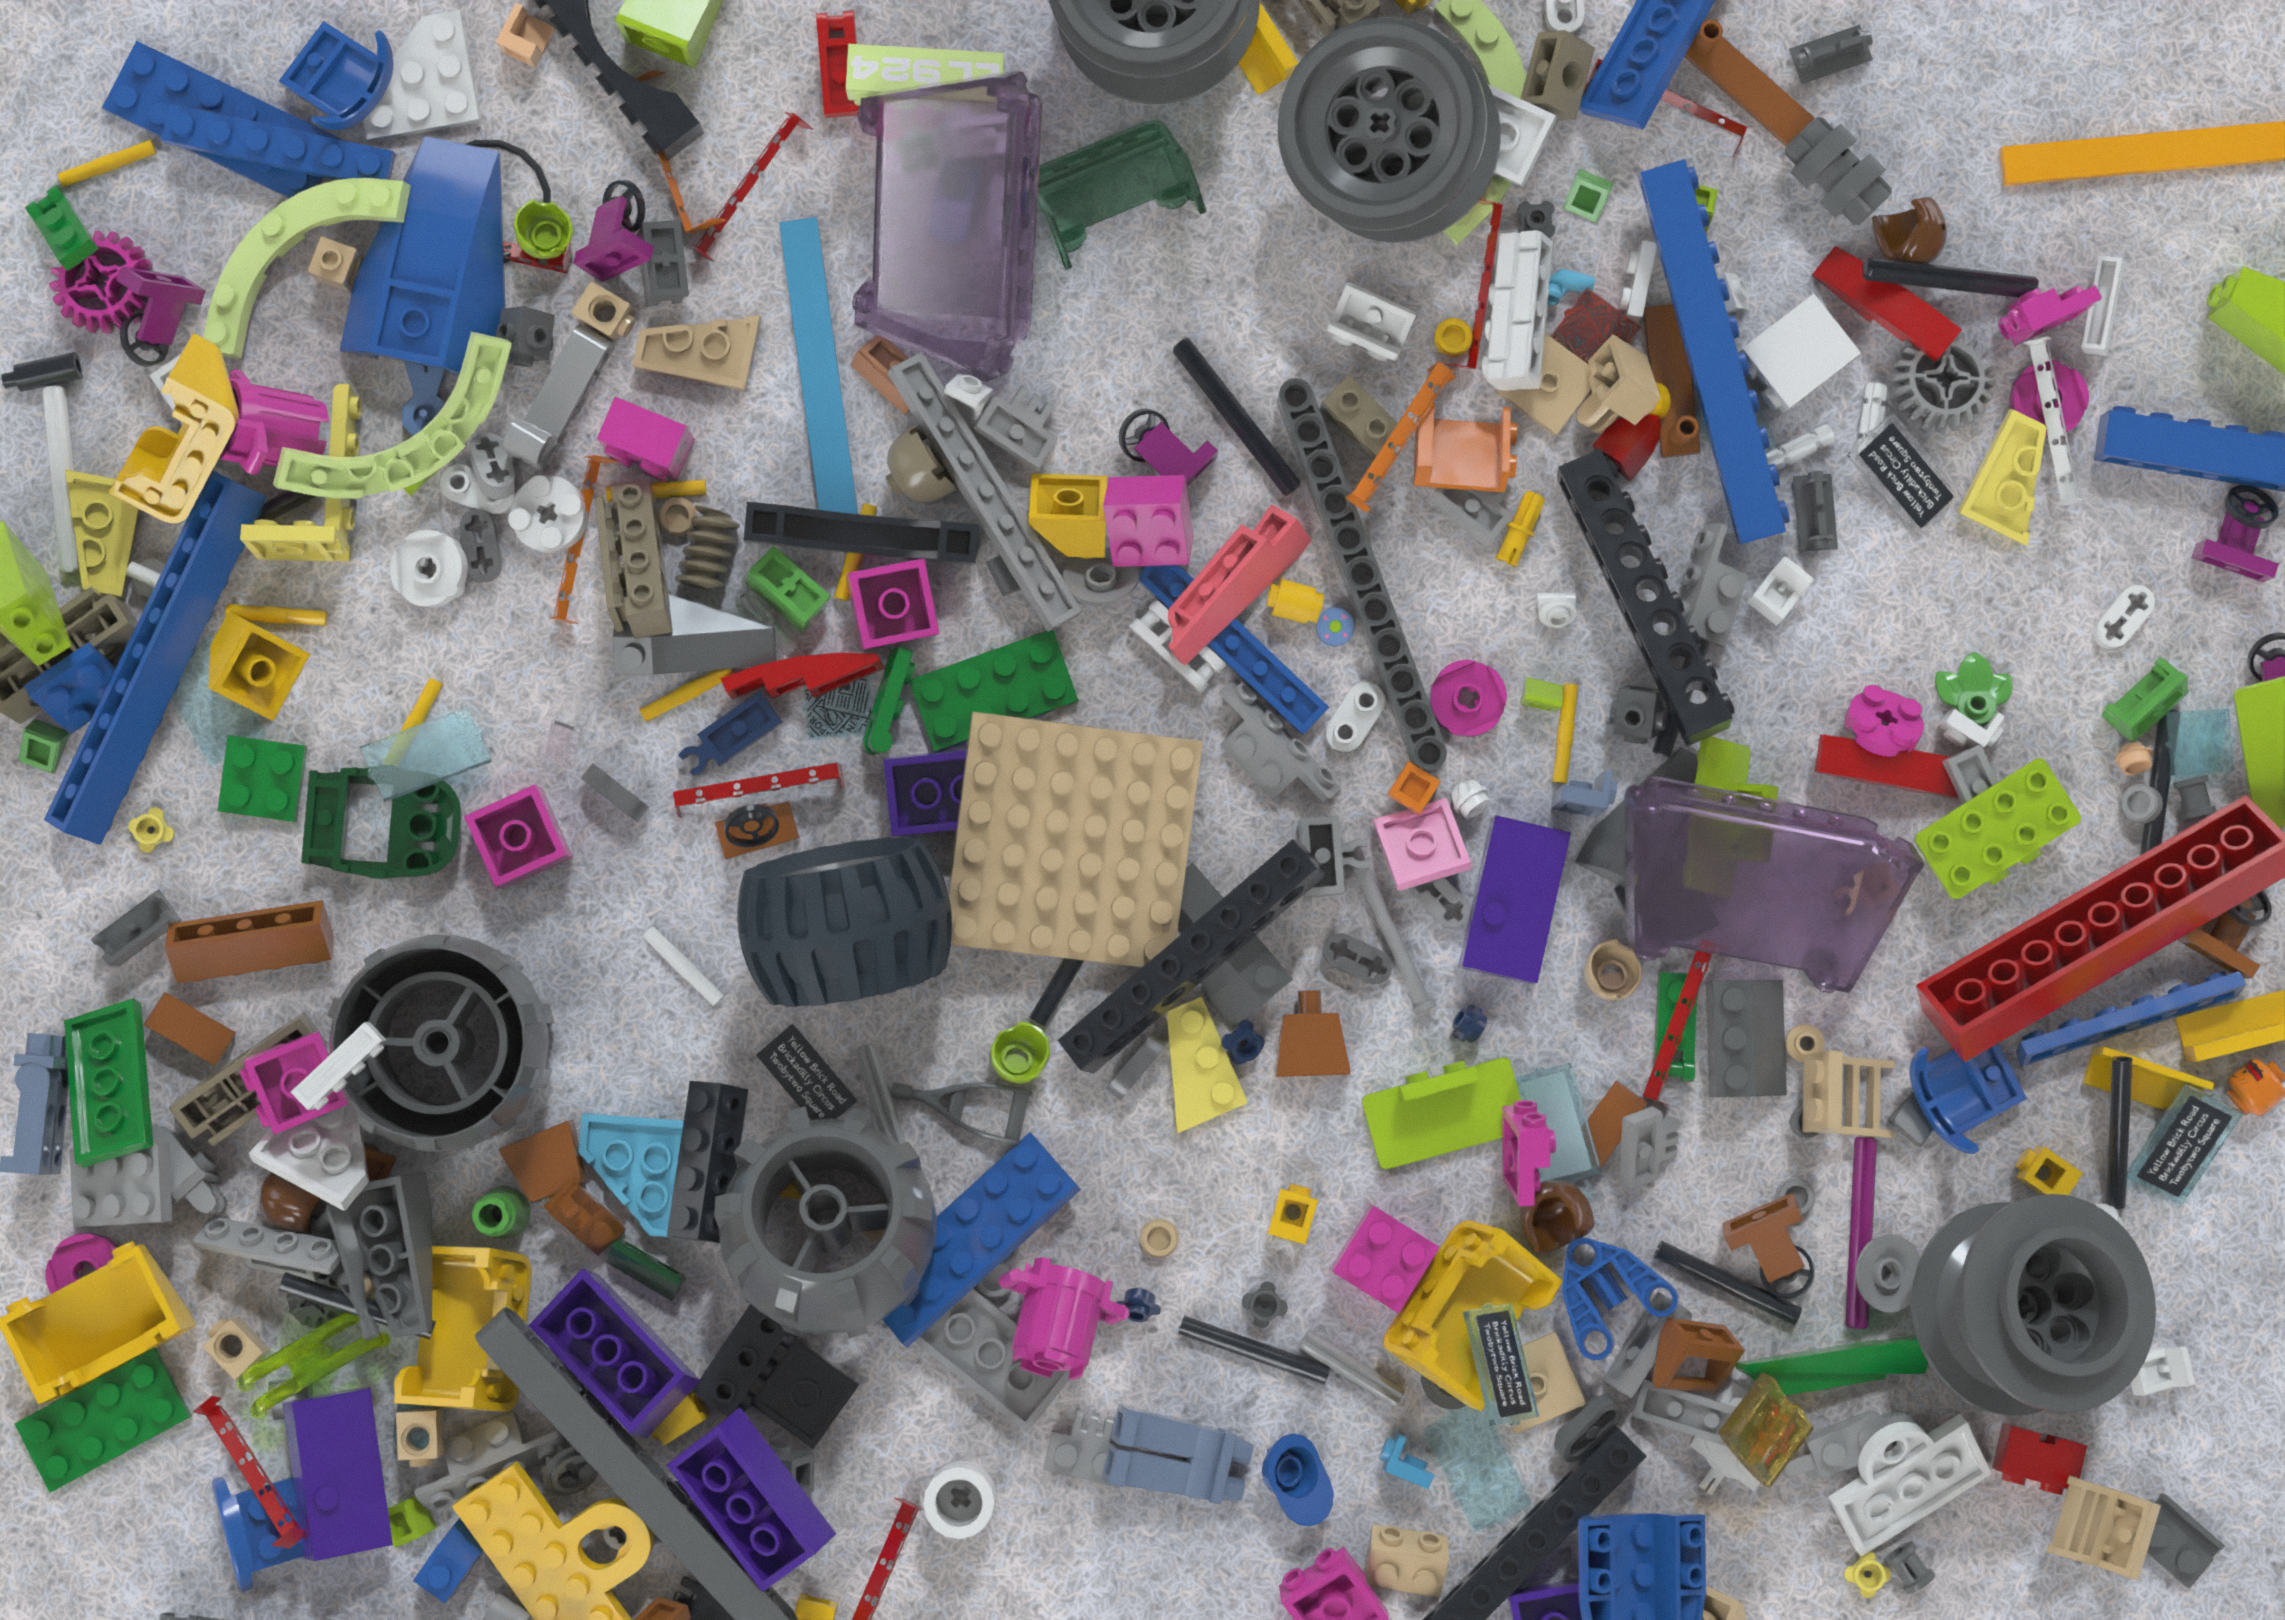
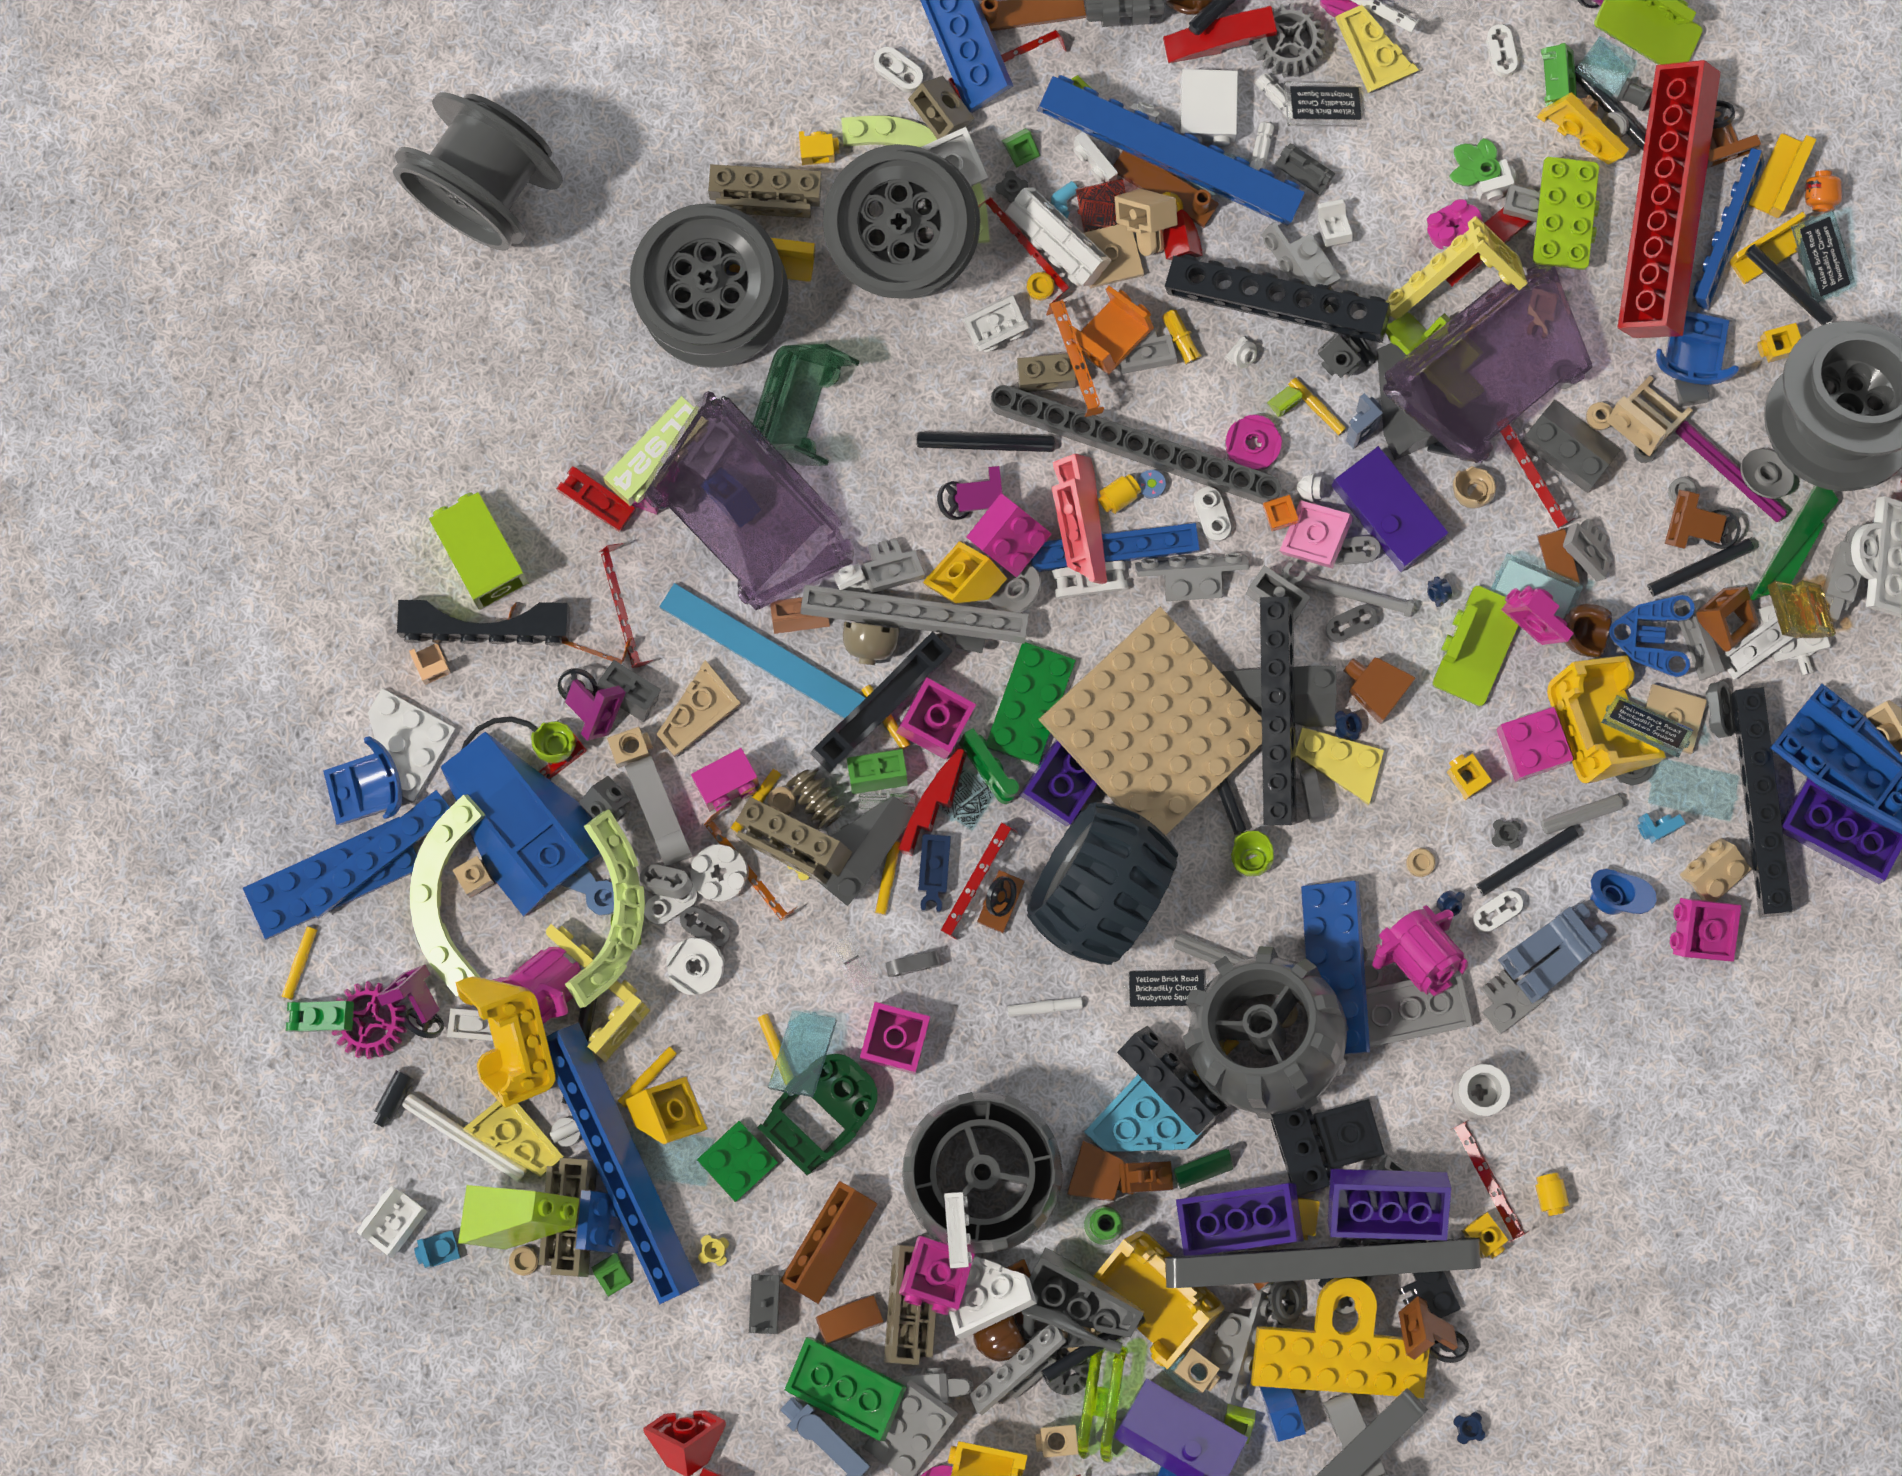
camera: 45 degrees left, 5 degrees down
(956, 1105) = (1251, 915): dark grey piece -> none
(1175, 1352) = (1494, 905): none -> white beam
(1668, 993) = (1510, 467): green plate -> none
(1886, 763) = (1477, 239): none -> light yellow bracket
(2113, 765) = (1579, 121): none -> yellow wing

